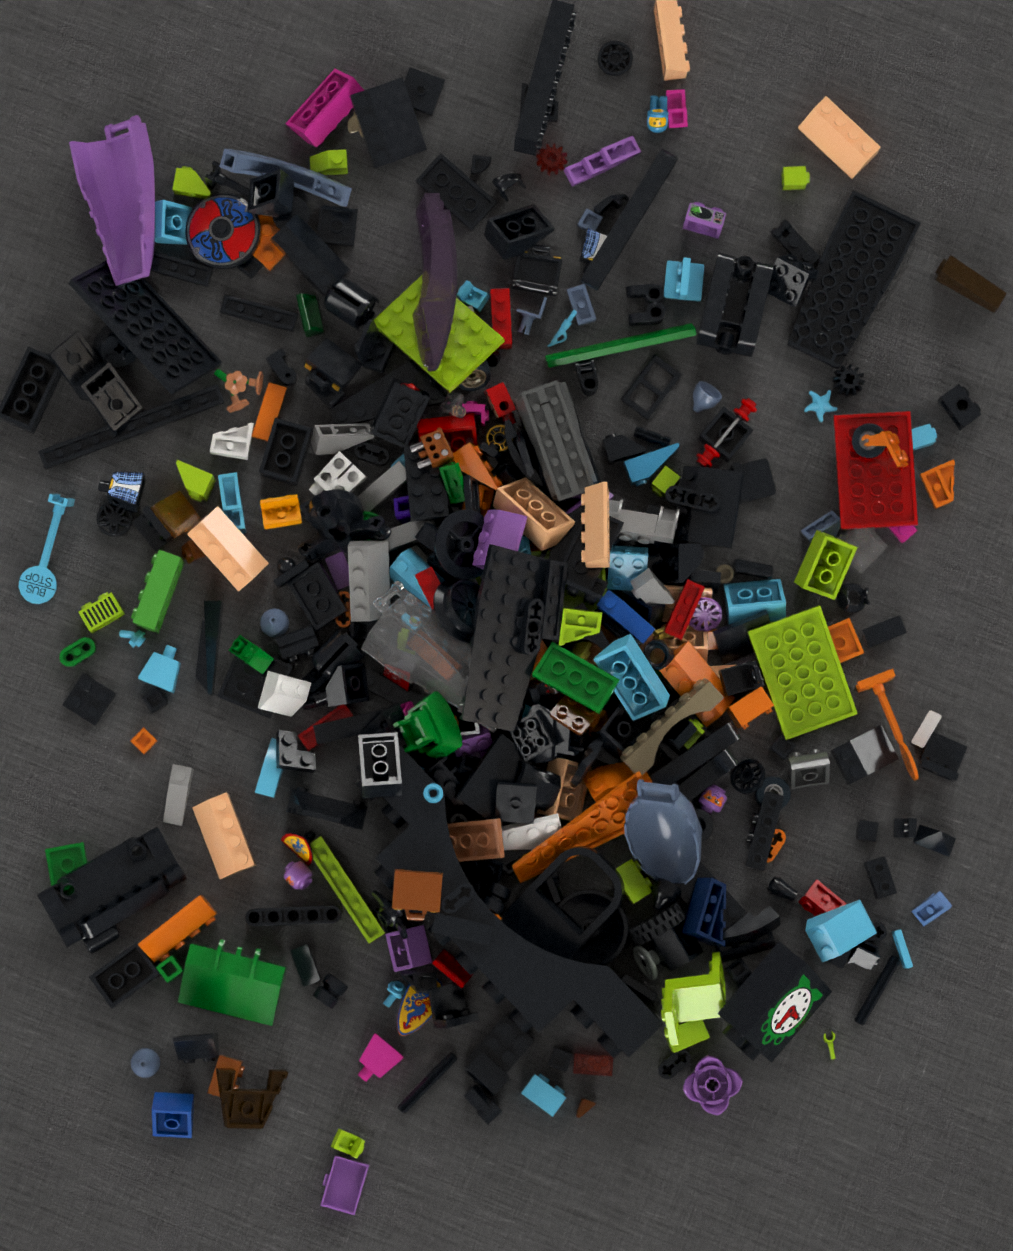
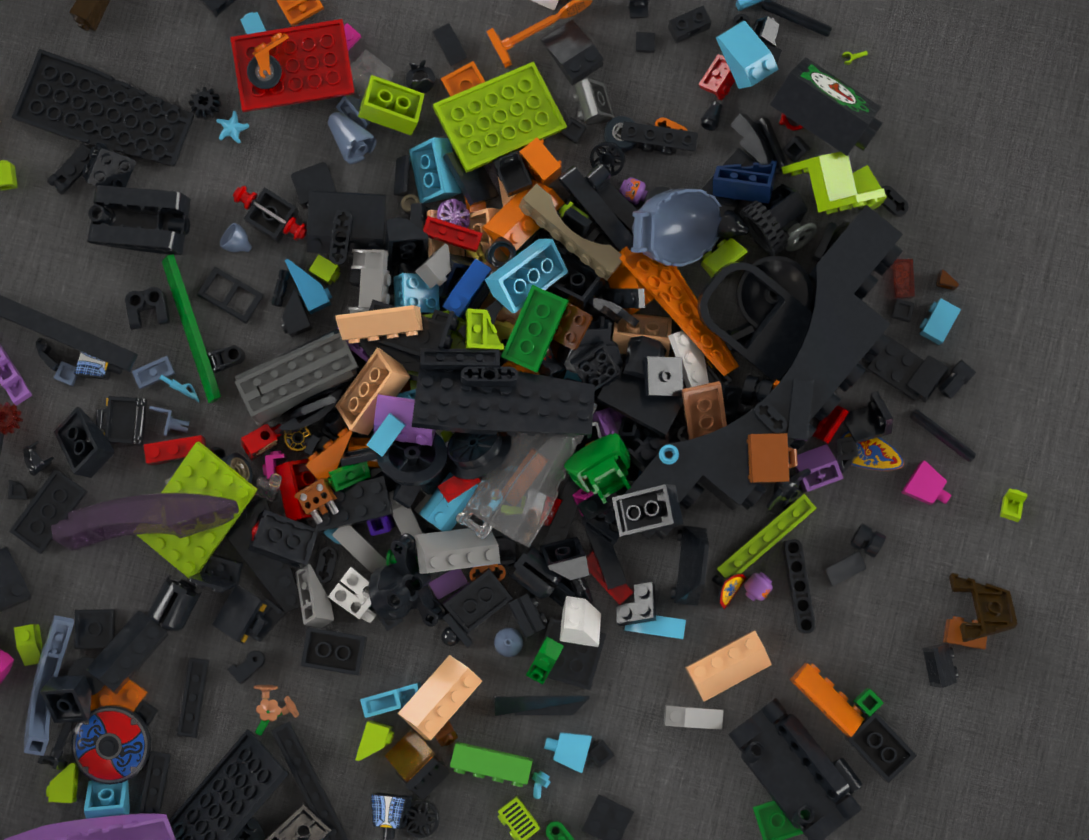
camera: 90 degrees left, 0 degrees up
(144, 740) = (643, 759): orange tile -> none
(145, 1062) = (961, 716): sand blue helmet -> none
(173, 1115) = (1009, 681): blue slope -> none
(231, 983) = (872, 639): green piece -> none
(233, 443) = (329, 706): white wing -> none
(269, 411) = (294, 674): orange tile -> none
(281, 511) = (395, 649): light orange bracket -> none
(310, 314) = (190, 644): dark green tile -> none
(344, 1184) = (1052, 504): medium lavender container -> none
(396, 990) = (857, 476): medium azure plate -> none
(472, 296) = (155, 480): medium azure bracket -> none
(486, 520) = (386, 434): none -> medium azure tile
(600, 773) = (625, 297): none -> black plate
(683, 280) = (118, 273): medium azure bracket -> none
(704, 220) = (55, 259): medium lavender slope -> none
(727, 1081) = (922, 158): medium lavender brick -> none
(797, 520) = (350, 137): none -> sand blue cone

